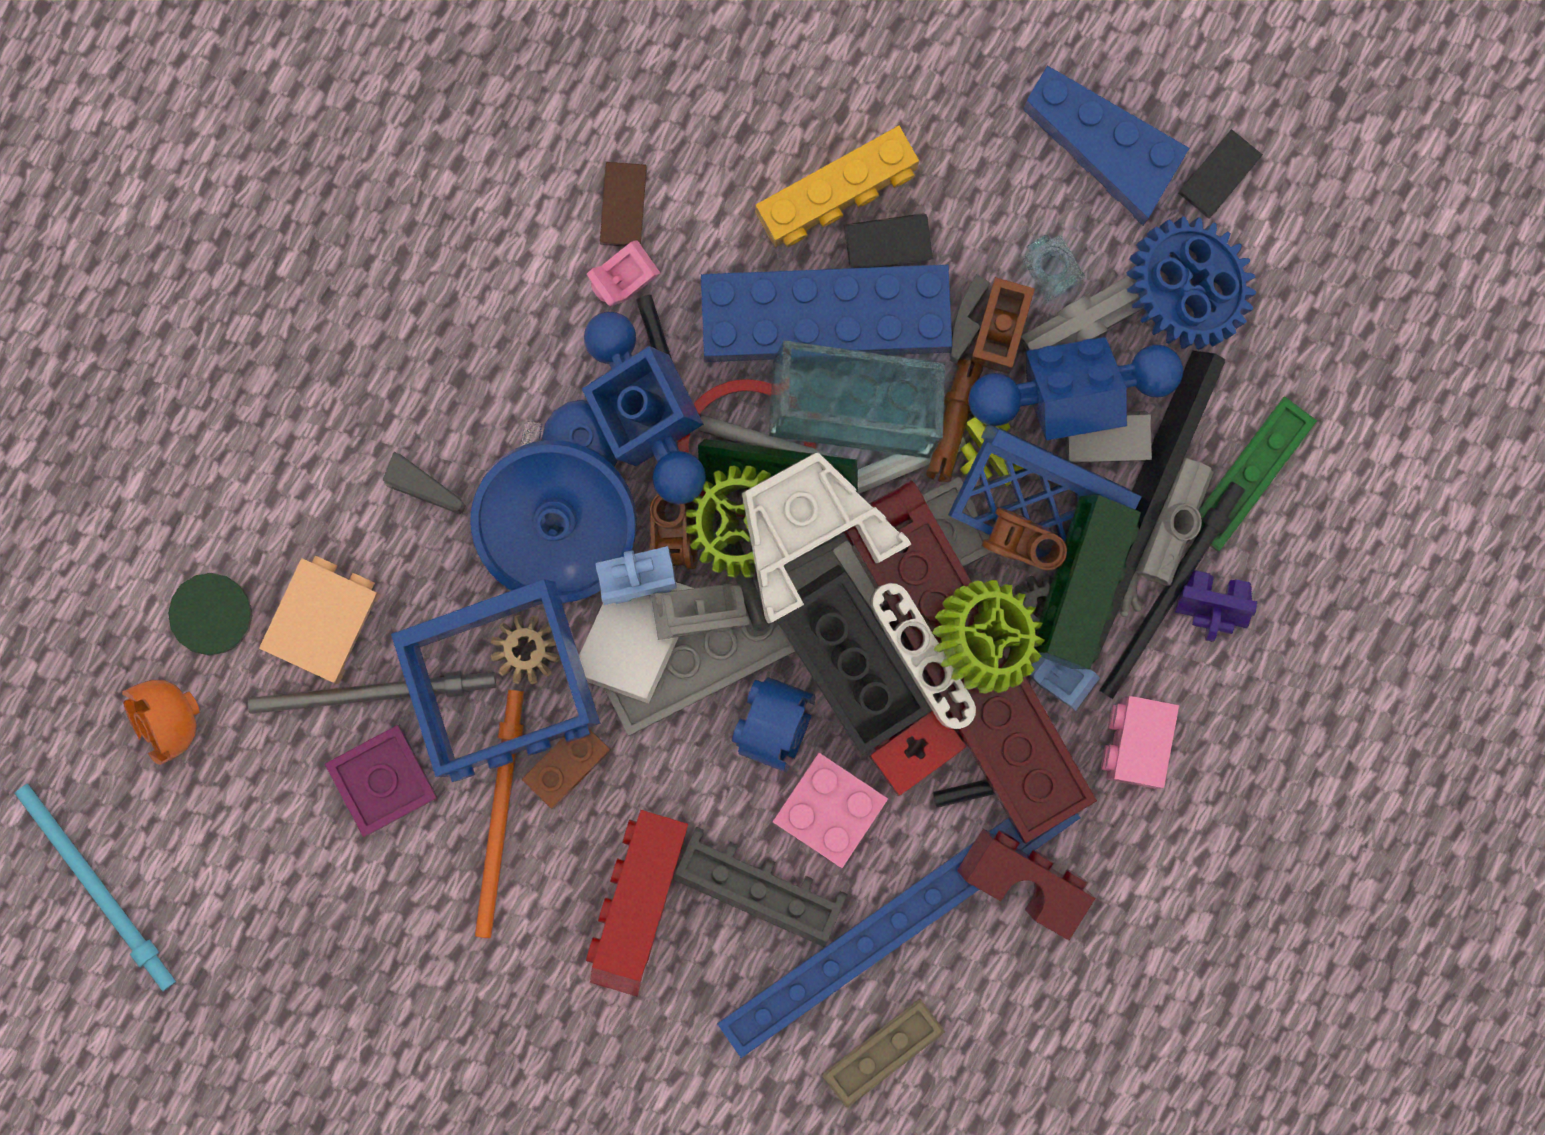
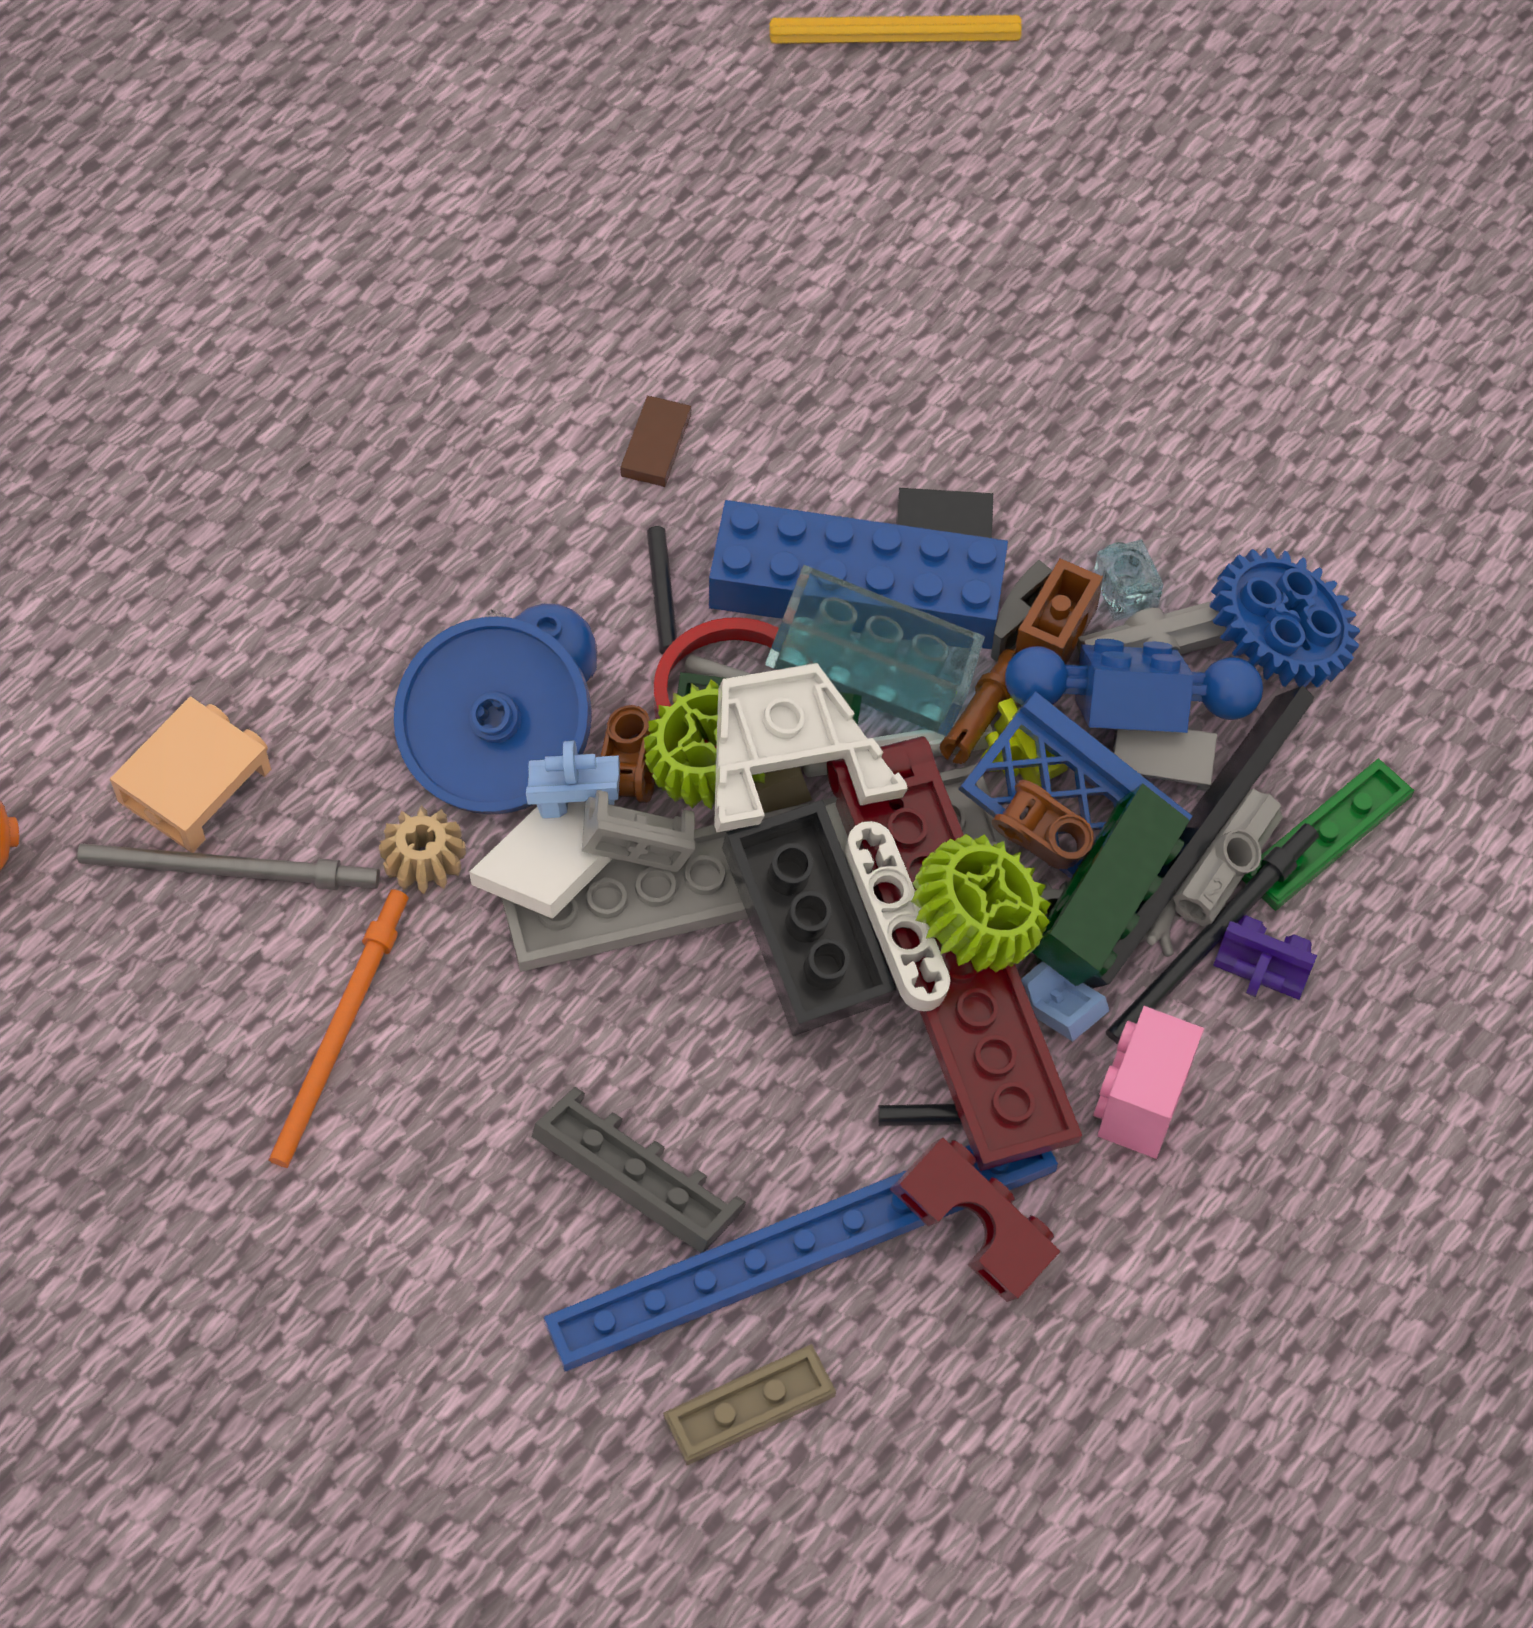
camera: 15 degrees right, 25 degrees down
(210, 614) = (67, 749): dark green tile -> none
(381, 780) = (208, 959): magenta plate -> none
(408, 644) = (356, 791): blue window -> none
(413, 481) = (347, 658): dark grey slope -> none
(565, 767) = (436, 979): dark orange brick -> none
(623, 274) = (639, 499): bright pink bracket -> none
(637, 902) = (475, 1154): red wedge -> none
(643, 407) = (627, 617): blue brick -> none
(750, 593) = (705, 837): dark grey bar -> none
(773, 723) = (699, 976): blue brick -> none
(830, 810) = (745, 1092): bright pink brick -> none
(836, 187) = (897, 457): yellow brick -> none
(906, 772) = (853, 1067): red brick -> none
(1108, 142) = (1210, 468): blue wedge -> none
(1220, 174) = (1333, 530): black tile -> none

